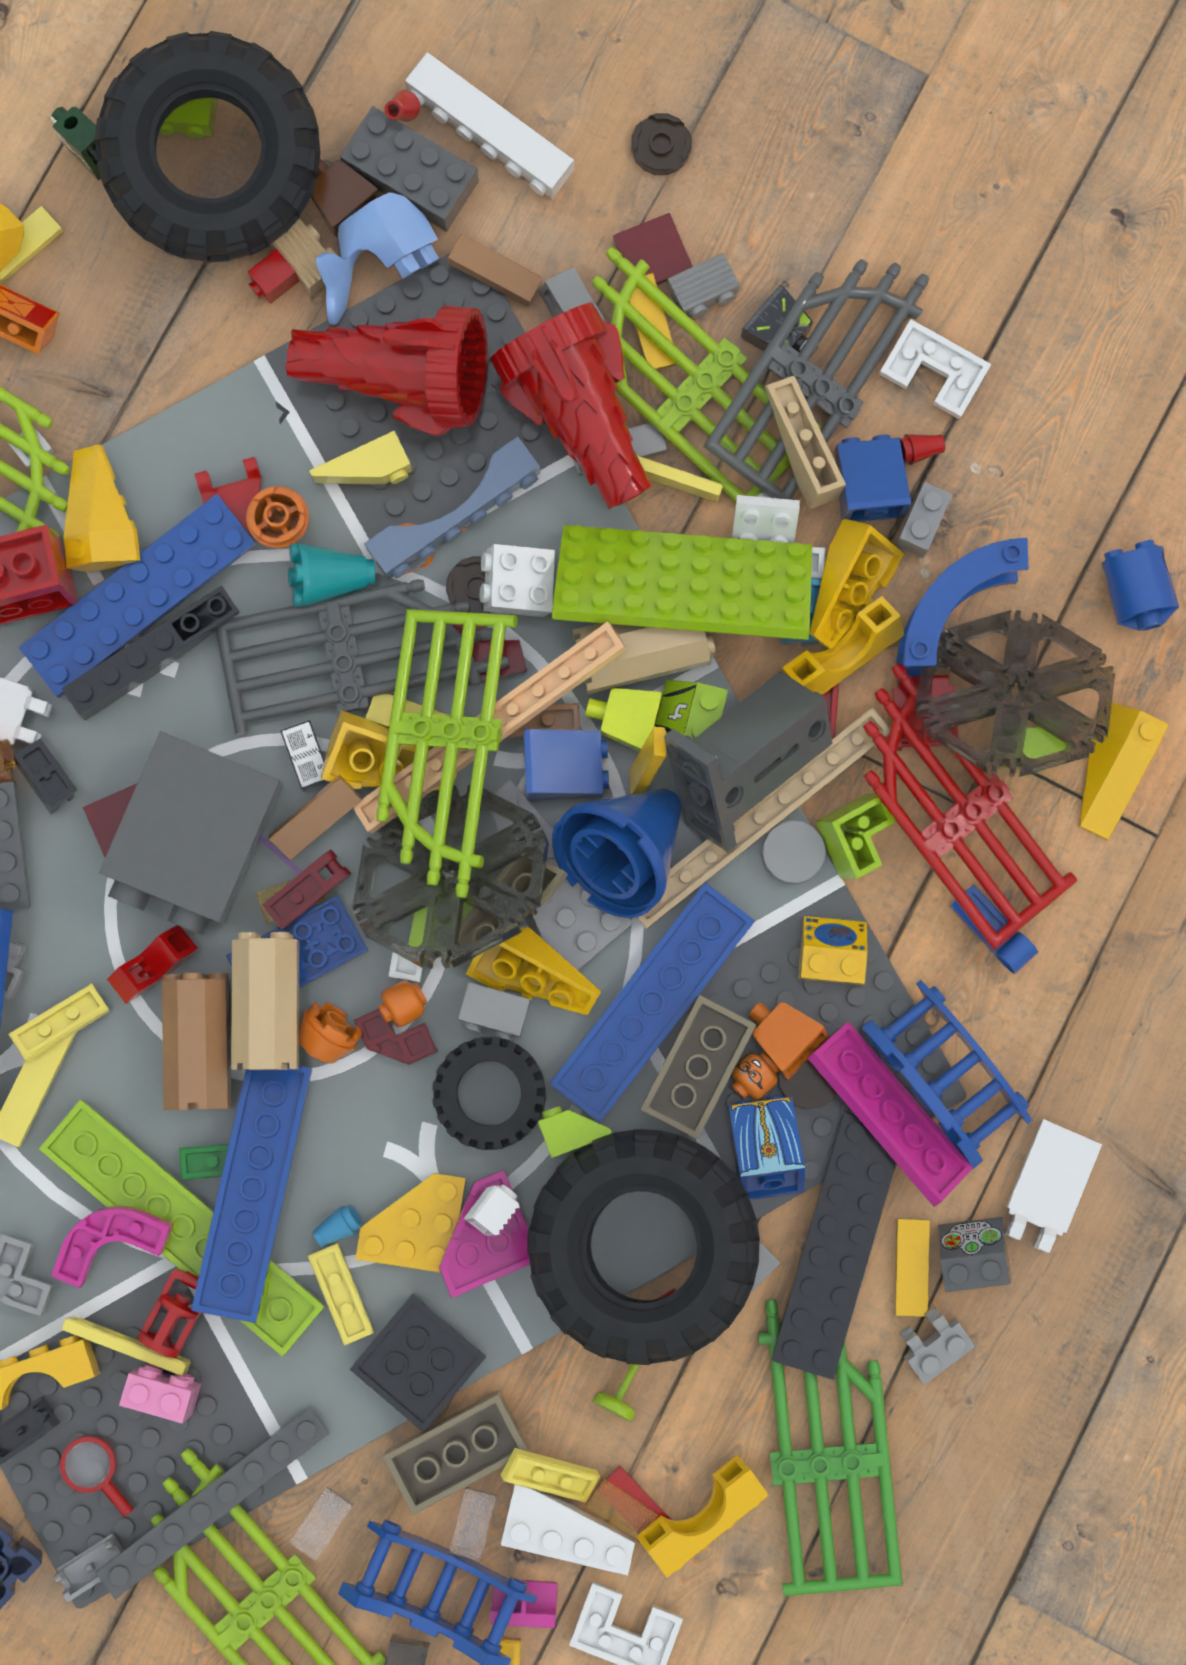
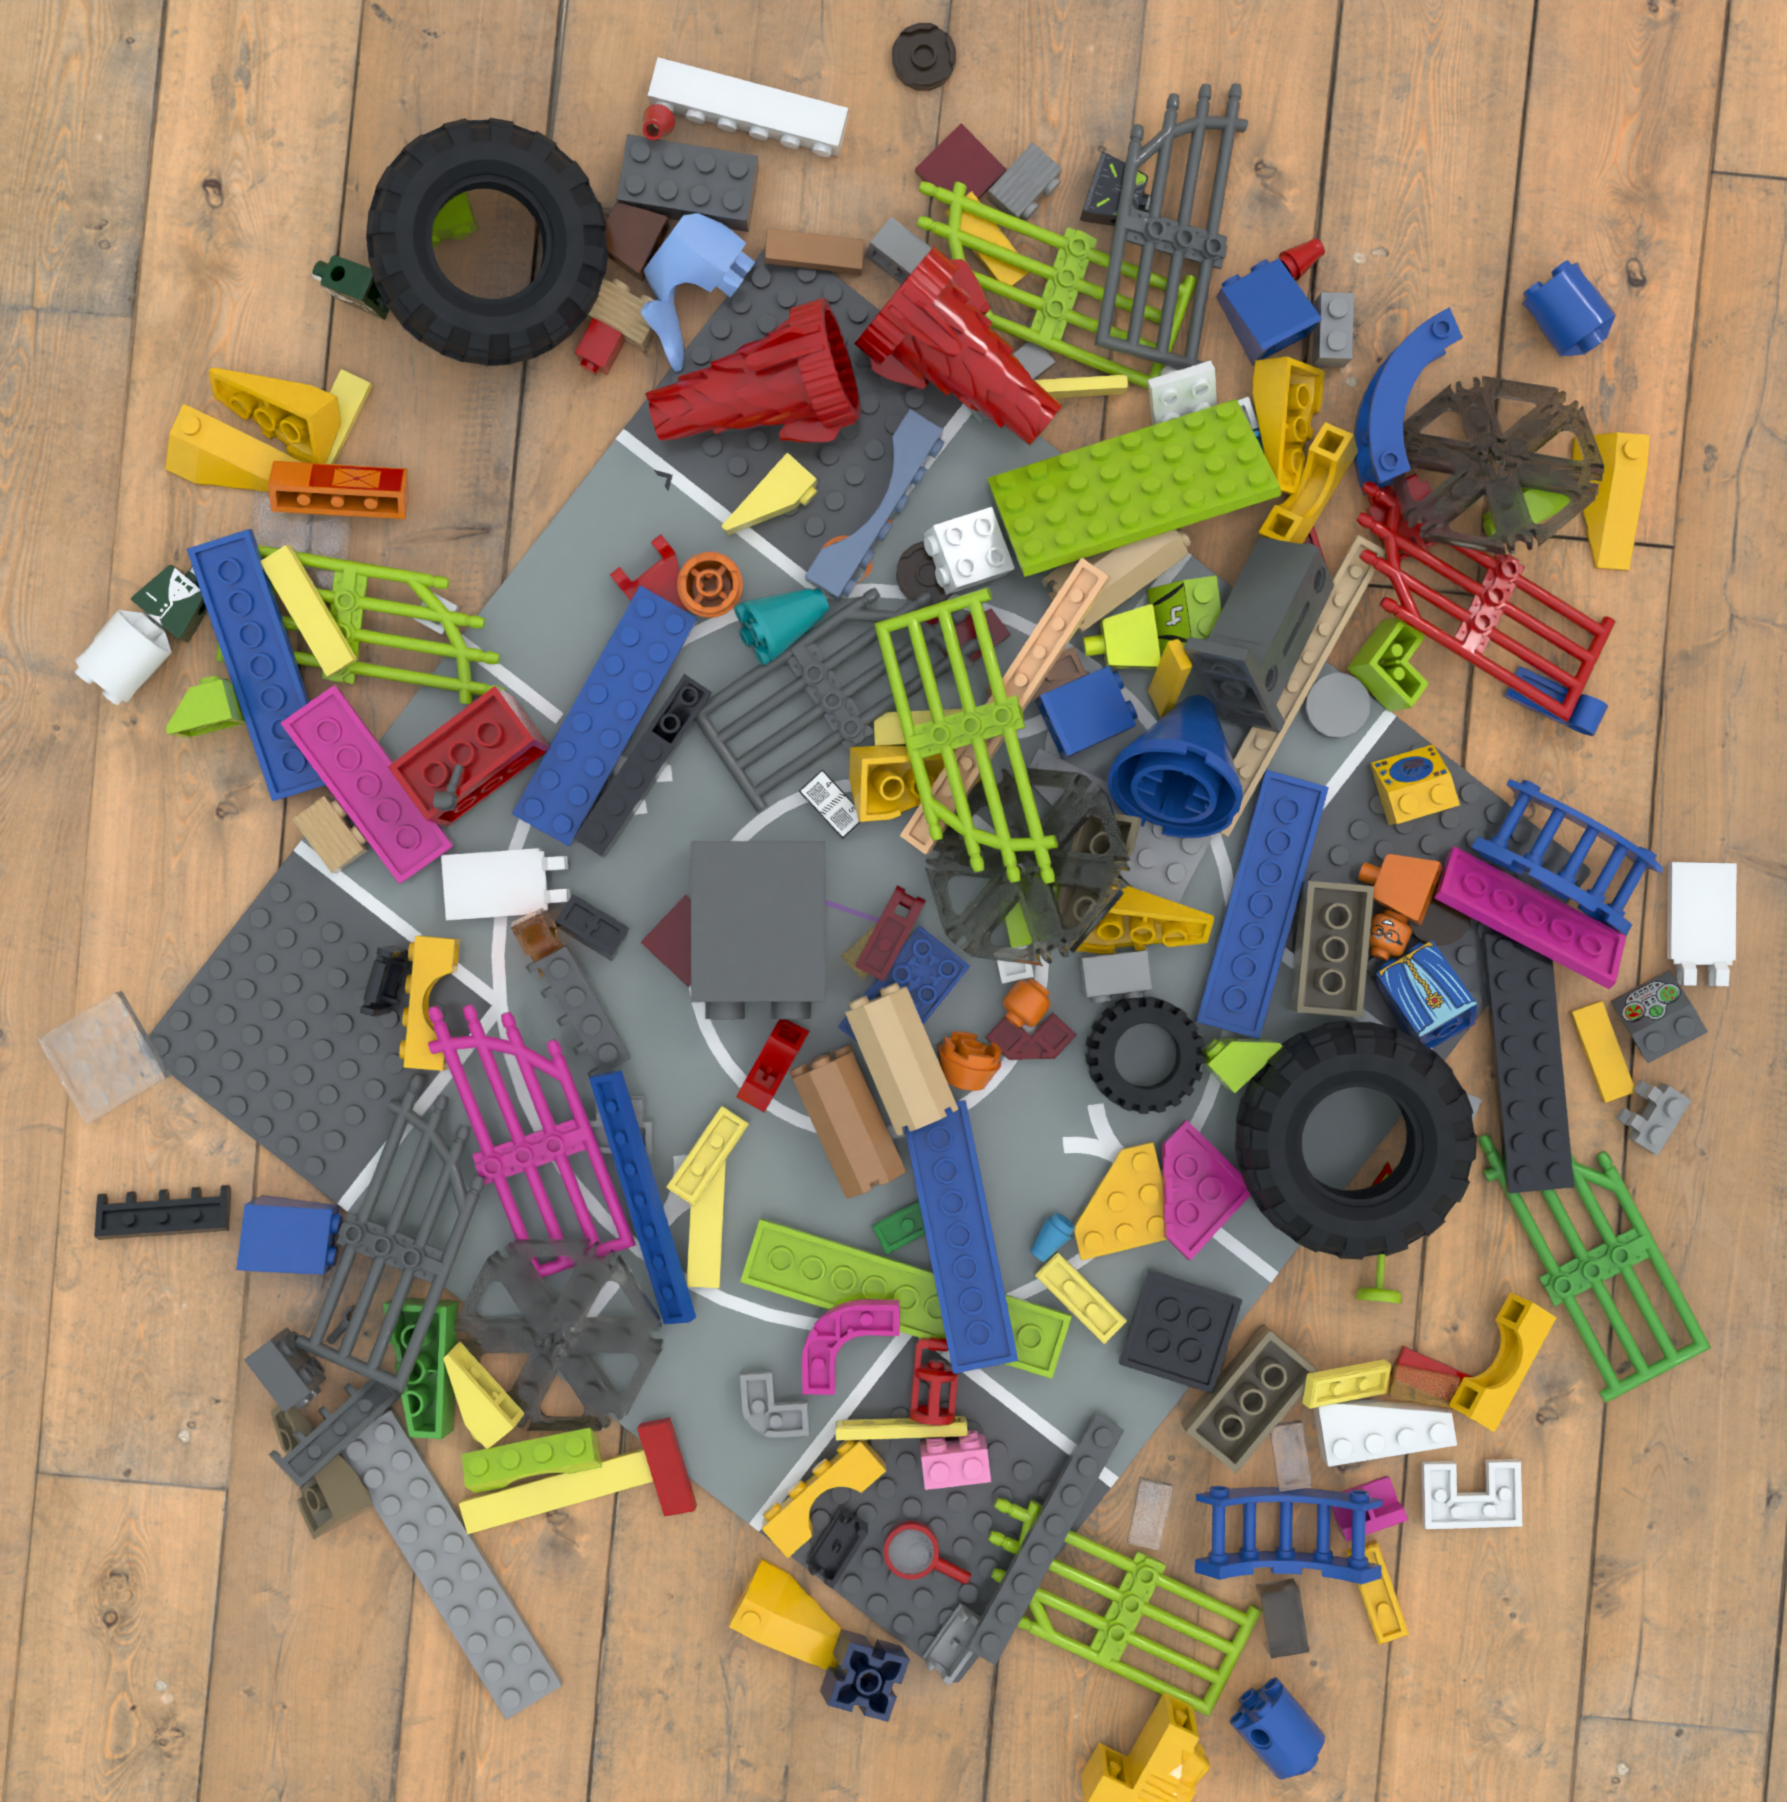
camera: 25 degrees left, 5 degrees up
(96, 521) = (535, 661): yellow wedge -> none
(314, 817) = (868, 861): medium nougat tile -> none
(492, 1210) = (1198, 1164): white brick -> none
(804, 443) = (1193, 303): tan slope -> none
(925, 347) = (1264, 156): white plate -> none

